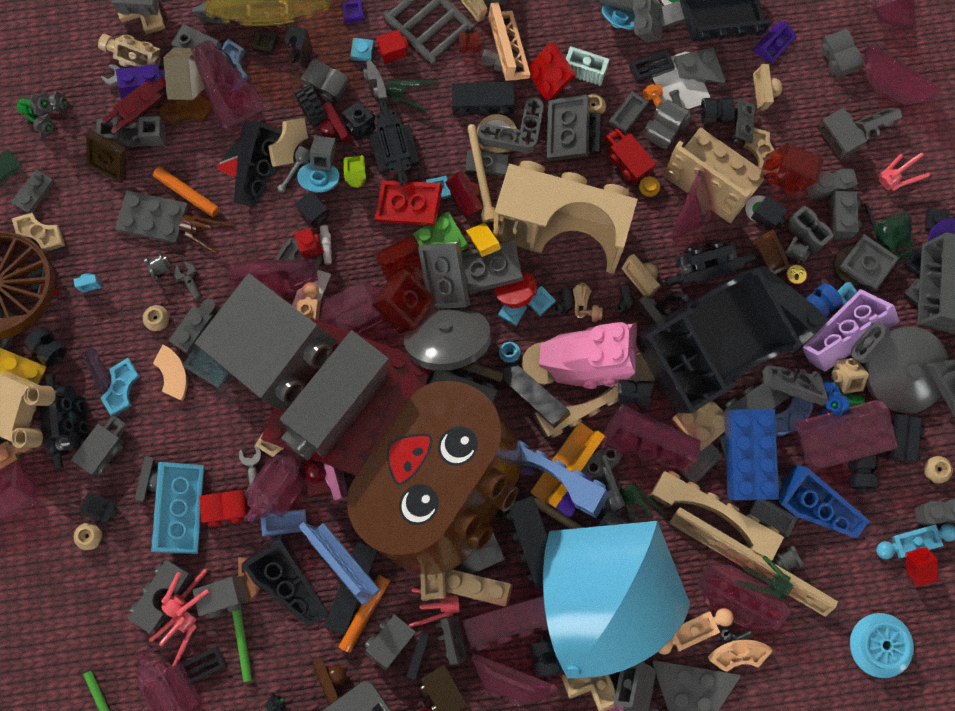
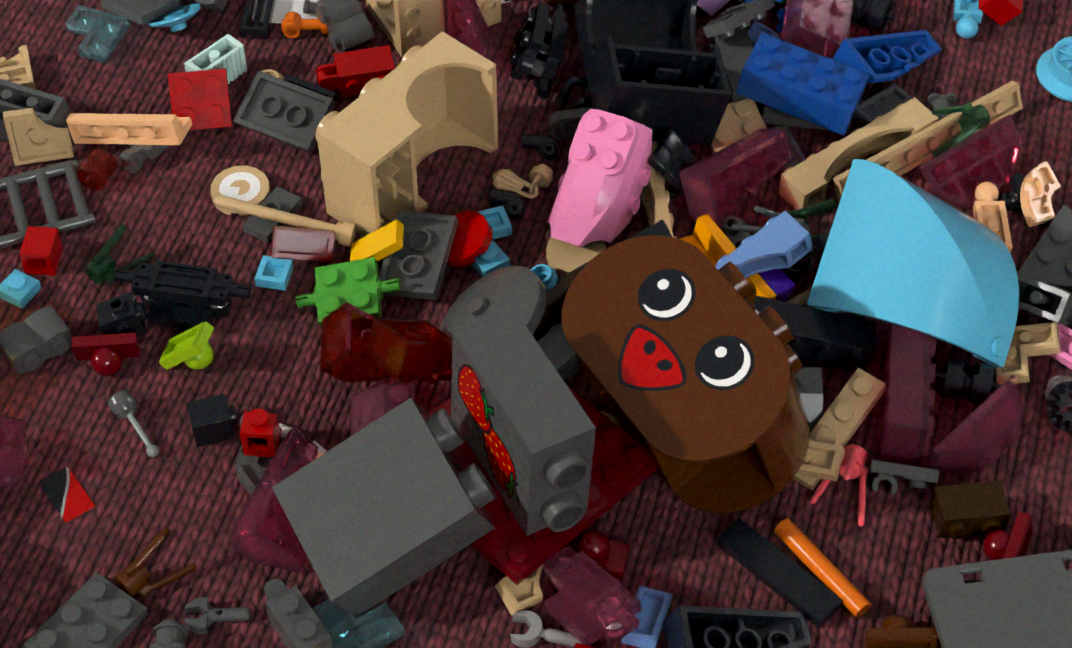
camera: 65 degrees left, 25 degrees down
(186, 192) = (77, 569): orange piece -> none
(254, 161) = (79, 448): black wedge -> none
(292, 134) = (94, 414): tan tile -> none
(310, 105) = (61, 362): black tyre -> none
(318, 179) = (168, 394): medium azure dish -> none
(322, 153) = (139, 375): dark grey brick -> none
(337, 483) = (621, 529): bright pink plate -> none
(341, 562) = (741, 553): medium blue fence -> none
(375, 81) = (75, 282): flat silver slope -> none
(389, 642) = (877, 544): dark grey brick -> none
(409, 204) = (276, 305): red plate -> none
(418, 655) = (908, 521): black tile -> none
(444, 275) = (402, 290): dark grey plate -> none
(482, 98) = (183, 183): black brick -> none
(518, 136) = (269, 158): dark grey beam -> none
(628, 112) = (300, 56): dark grey tile -> none
(642, 275) = (522, 113): tan tile -> none

